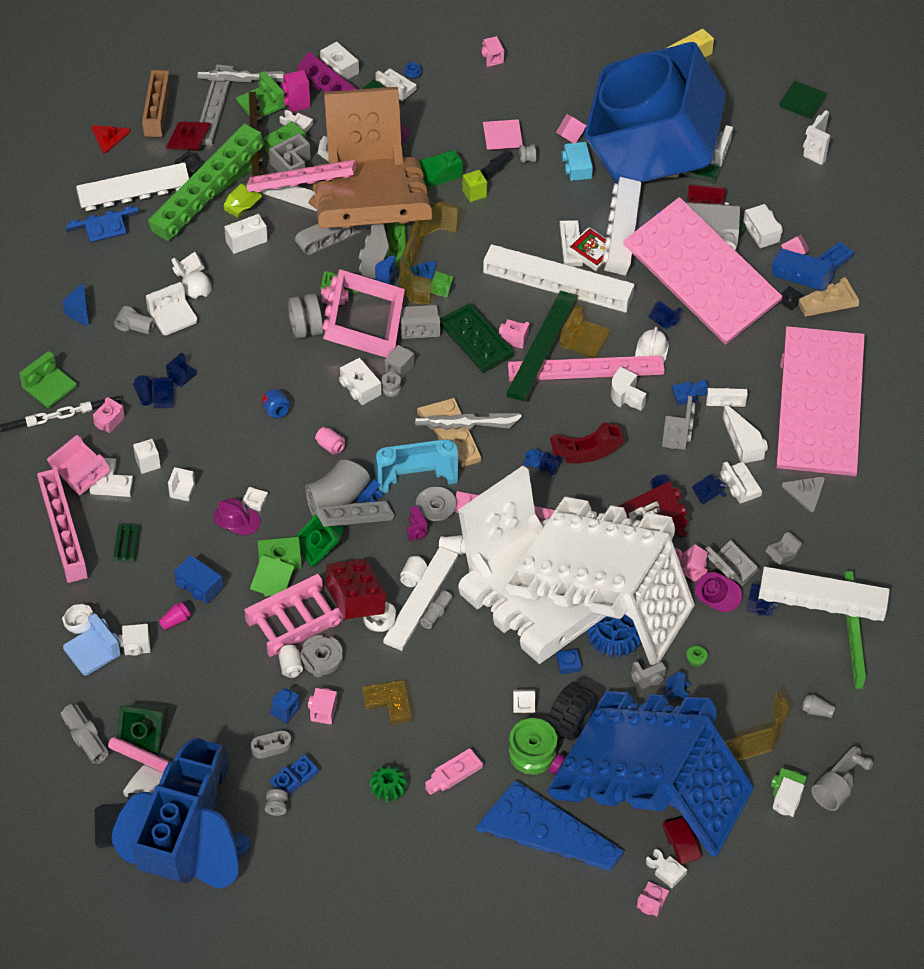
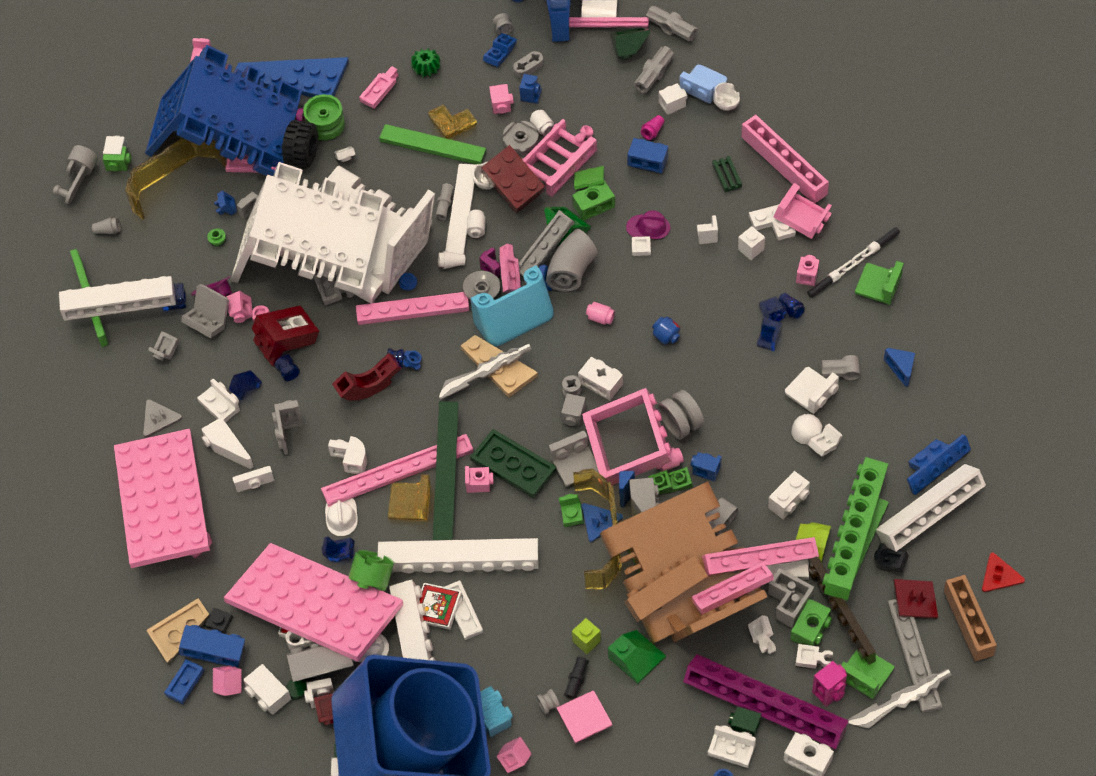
camera: 165 degrees right, 5 degrees up
(136, 683) = (654, 69): none -> light grey piece
(250, 633) = (585, 132): none -> bright pink piece
(303, 279) = (706, 465): none -> blue brick
(327, 155) = (732, 588): none -> bright pink plate
(396, 165) = (665, 588): none -> medium nougat brick
(400, 507) = (509, 269): none -> bright pink hinge
(421, 684) = (433, 144): none -> bright green tile
(642, 267) = (371, 570): none -> bright green brick
(682, 391) = (292, 477): blue plate -> none

